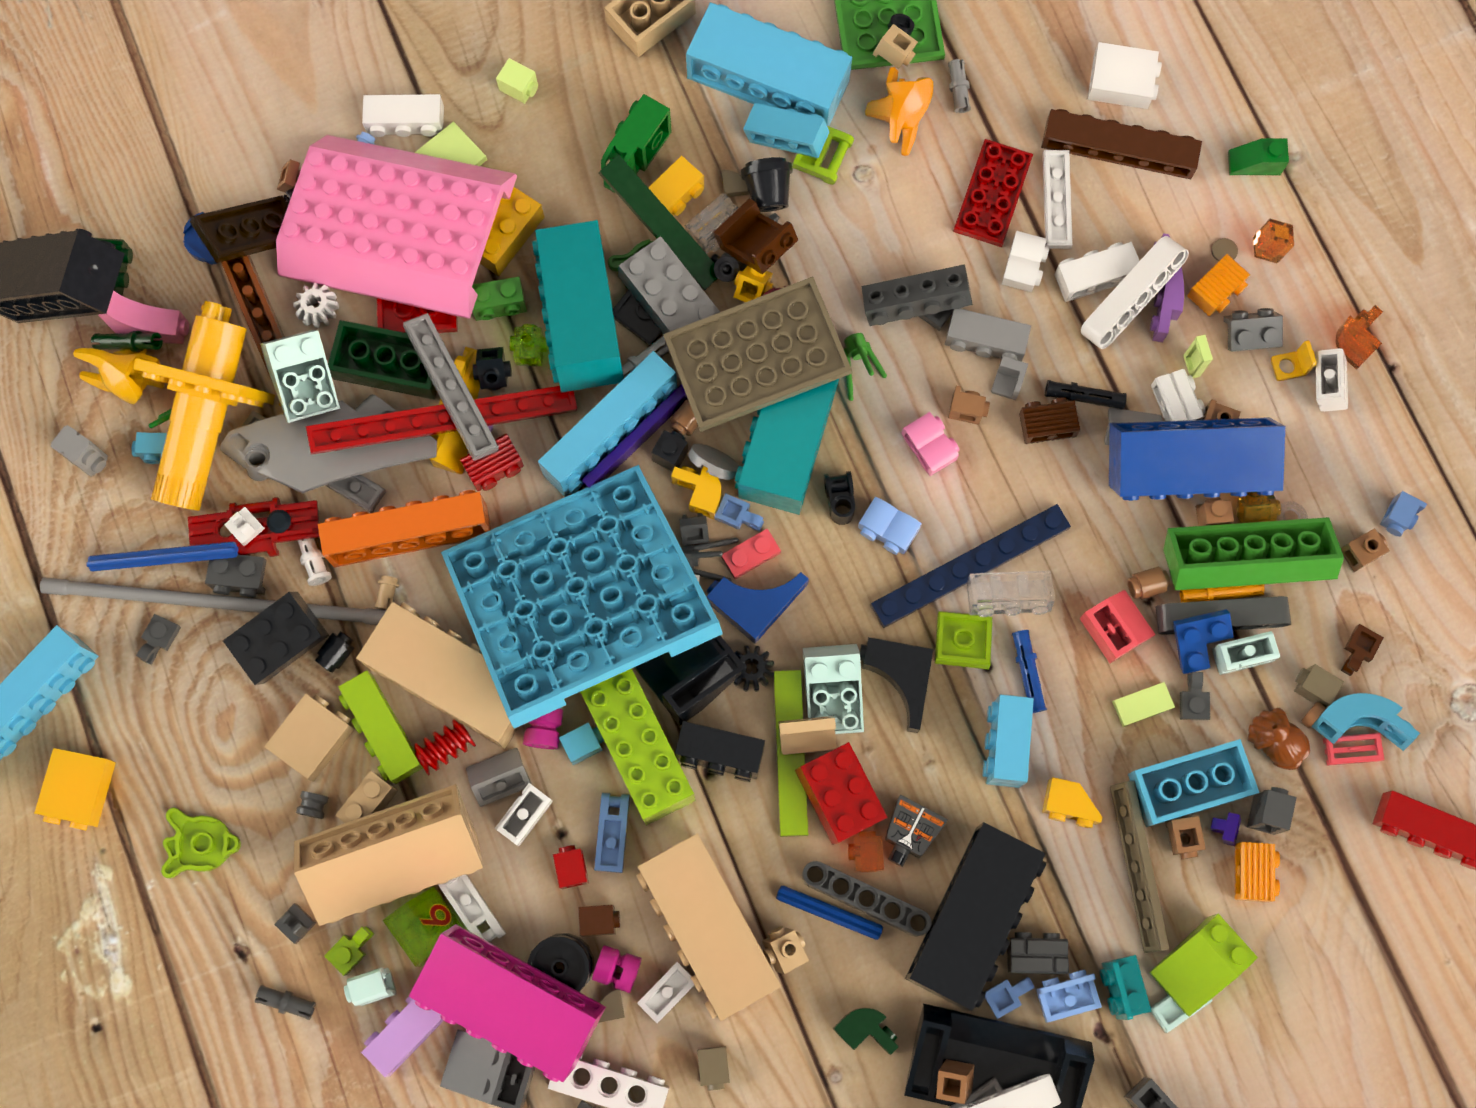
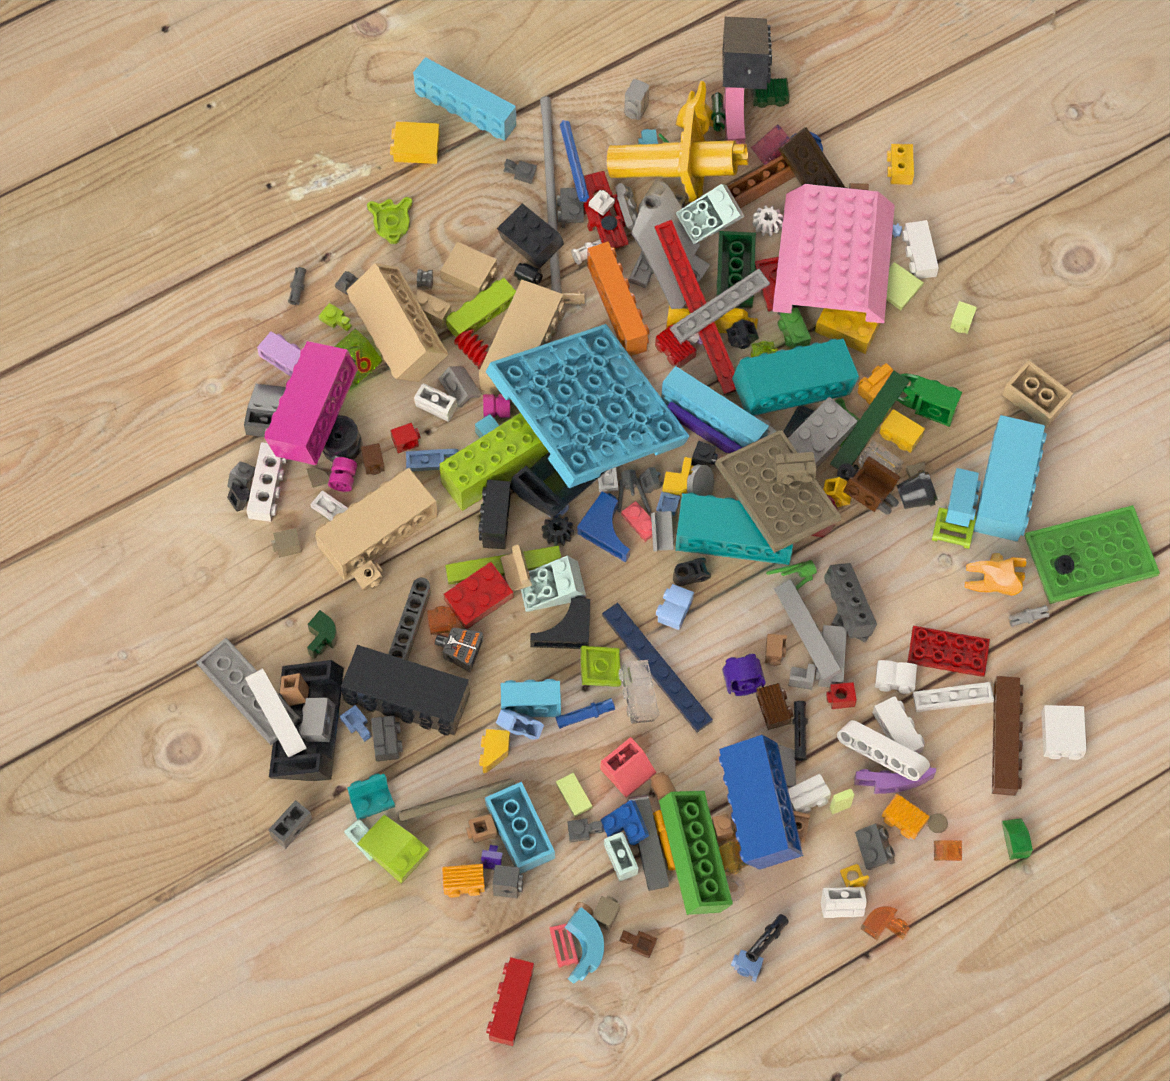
camera: 80 degrees right, 10 degrees down
(201, 275) = (768, 146): none -> clear pink brick
(252, 493) = (627, 204): none -> light grey hinge
(264, 115) = (901, 164): none -> yellow brick
(370, 987) = (312, 327): light aqua brick -> none
(471, 907) = (370, 383): white plate -> none
(598, 204) = (870, 386): none -> light orange brick
(732, 322) = (795, 467): none -> dark tan brick
(776, 524) = (662, 530): none -> light grey panel
(829, 912) = (397, 603): blue axle -> none
(896, 47) = (1049, 561): tan brick -> none
(930, 443) = (741, 627): bright pink brick -> none
(951, 357) = (808, 630): none -> light grey tile
(1005, 1052) = (317, 719): none -> light grey brick
(1006, 449) = (743, 675): none -> dark purple brick
(1044, 322) = (847, 689): none -> red brick
(1047, 761) = (519, 724): none -> light blue brick
(1068, 996) = (359, 760): light blue bracket -> none
(1279, 739) = (561, 890): dark orange hair -> none
(1364, 476) = (778, 924): none -> black pin
(1365, 549) = (715, 939): medium nougat brick -> none

